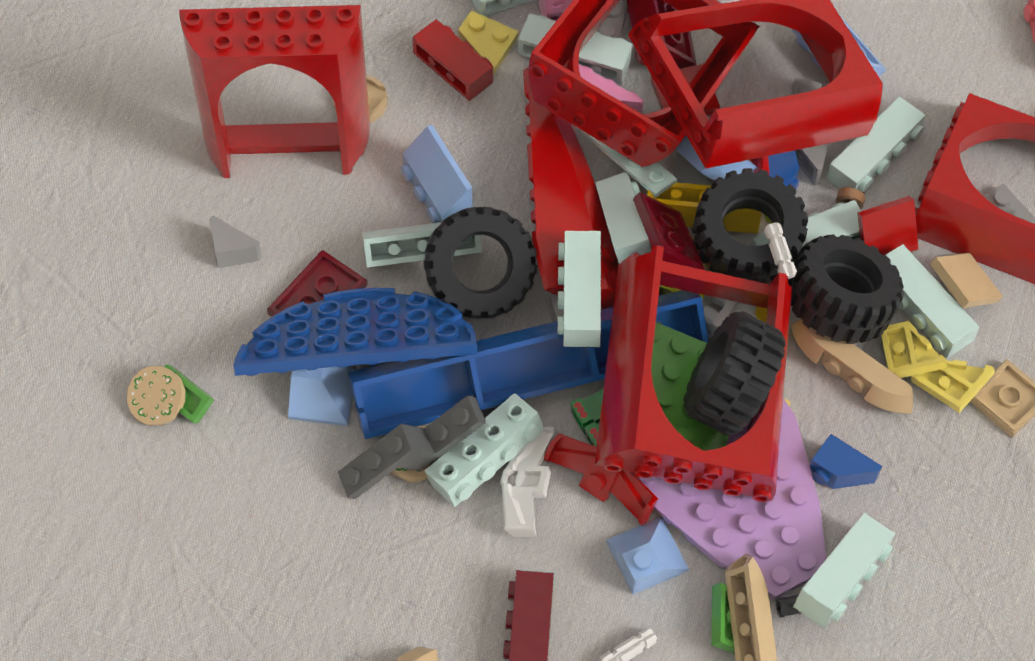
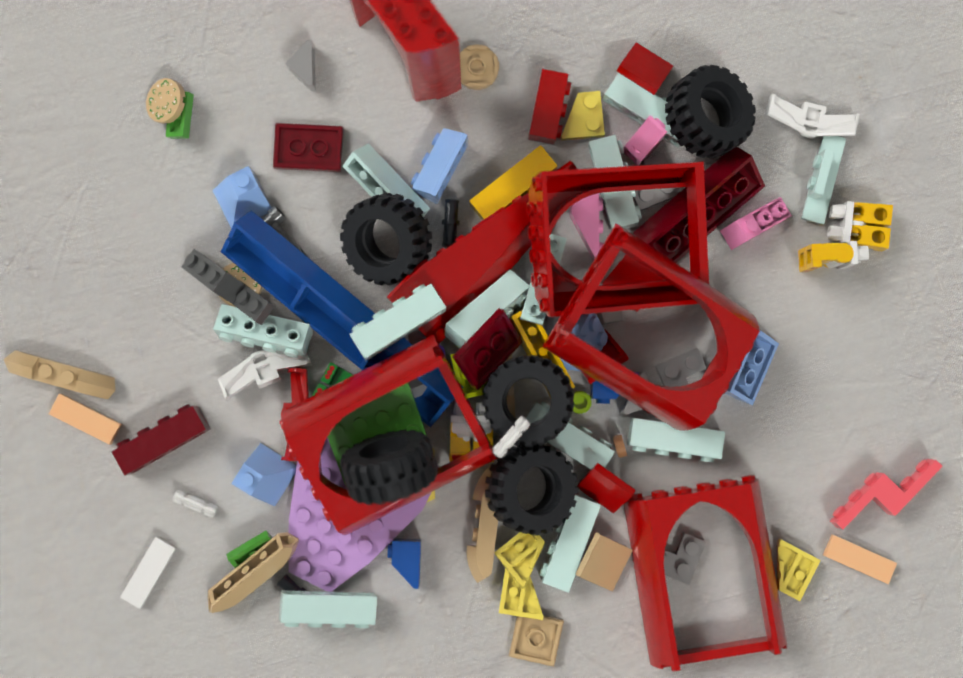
camera: 55 degrees right, 25 degrees up
(356, 330) = (283, 196): blue plate -> none
(488, 200) = (450, 222): none -> black pin
(509, 134) = (512, 183): none -> yellow brick

